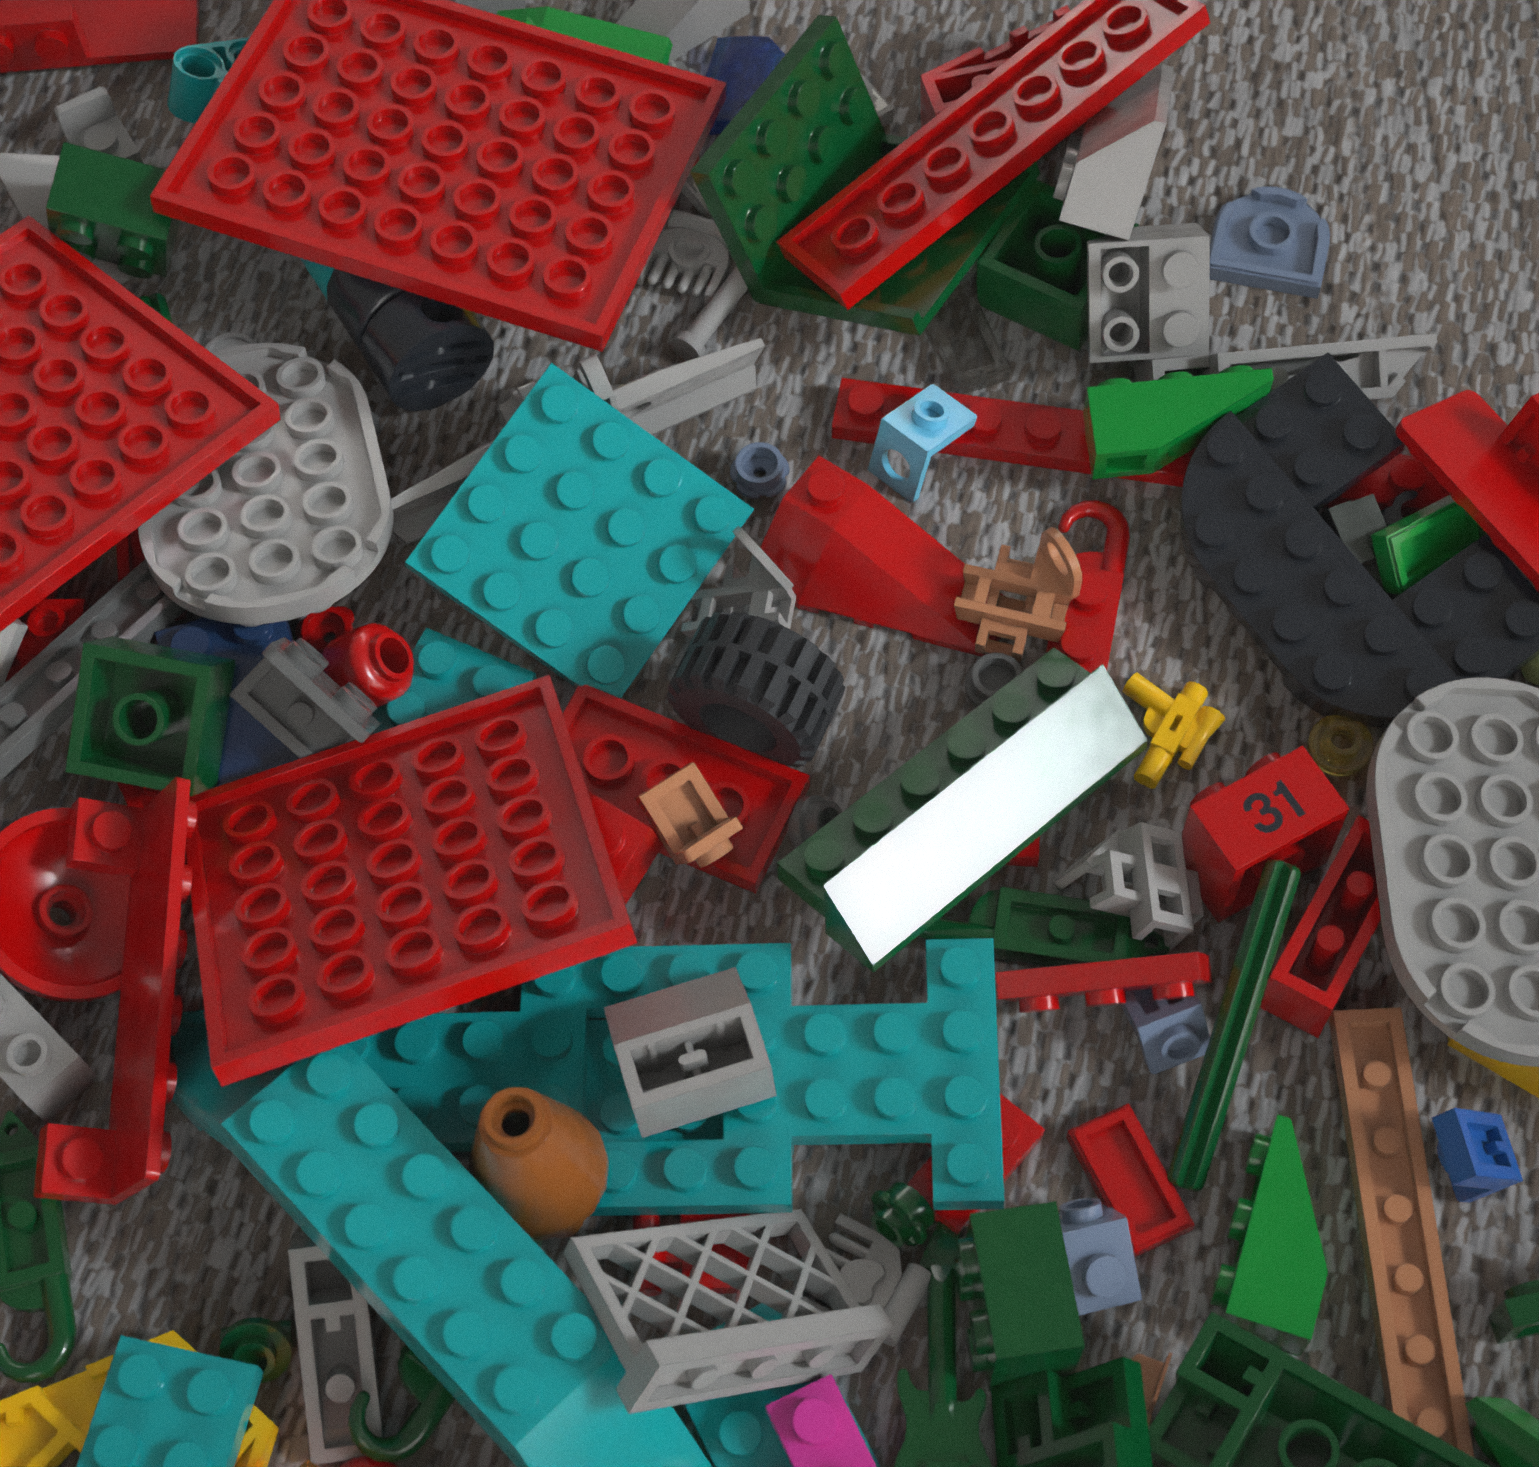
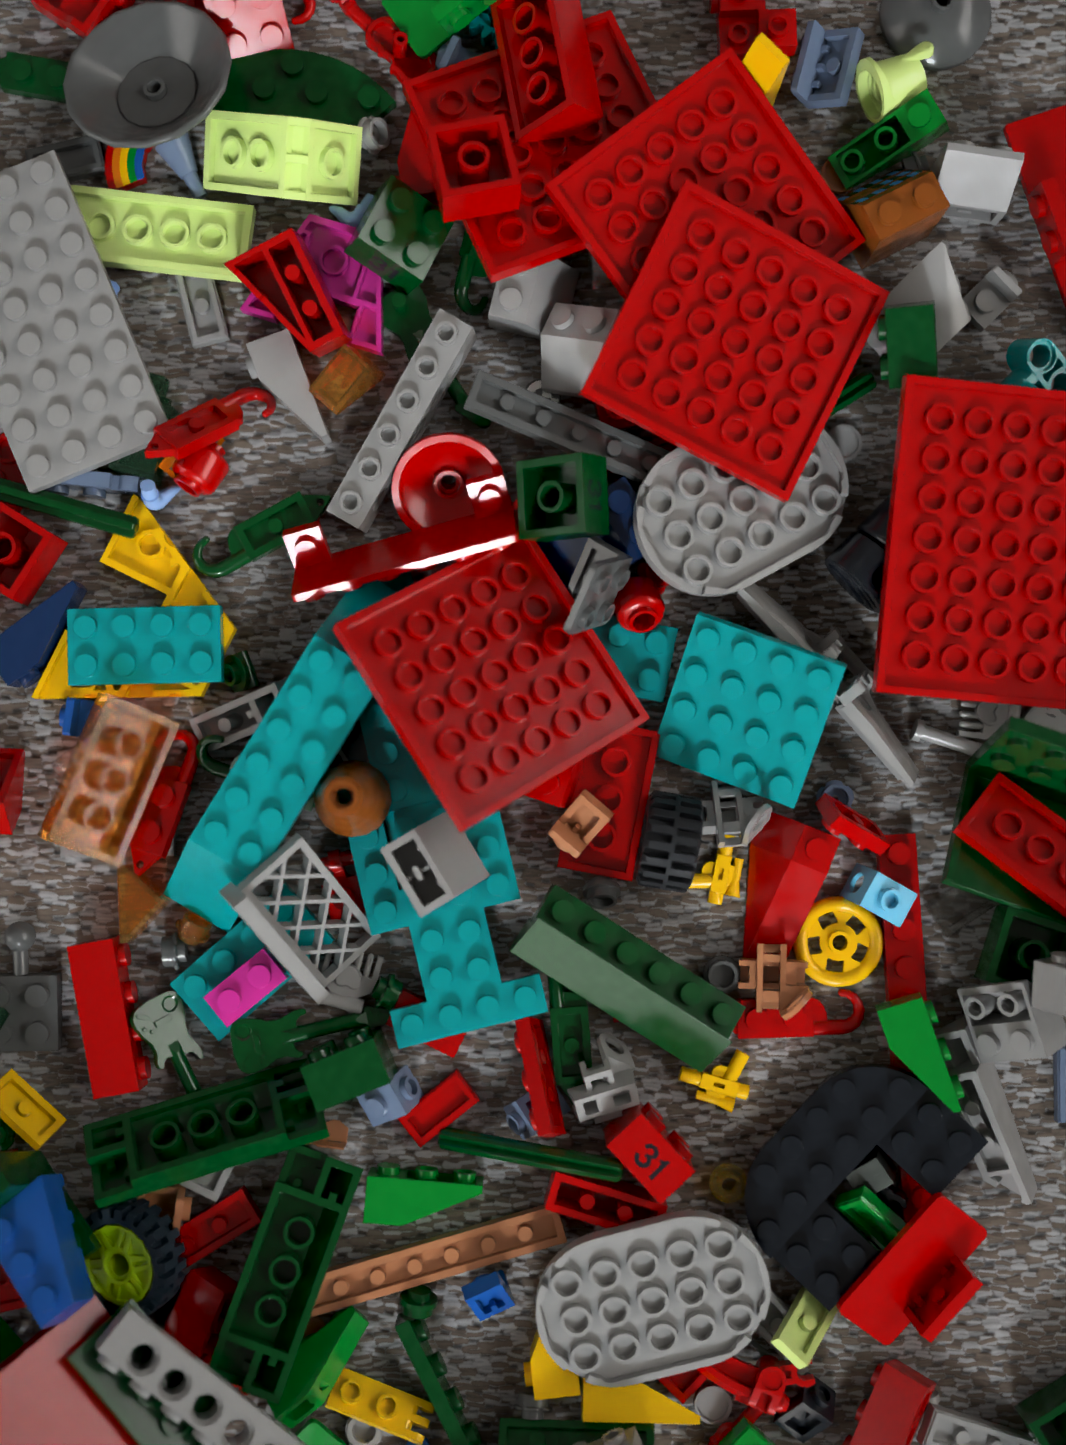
camera: 75 degrees right, 25 degrees up
(795, 446) = (856, 827): none -> red plate
(848, 650) = (720, 876): none -> yellow piece
(985, 471) = (869, 936): none -> yellow plate
(1475, 1288) = (418, 1302): none -> dark green plate

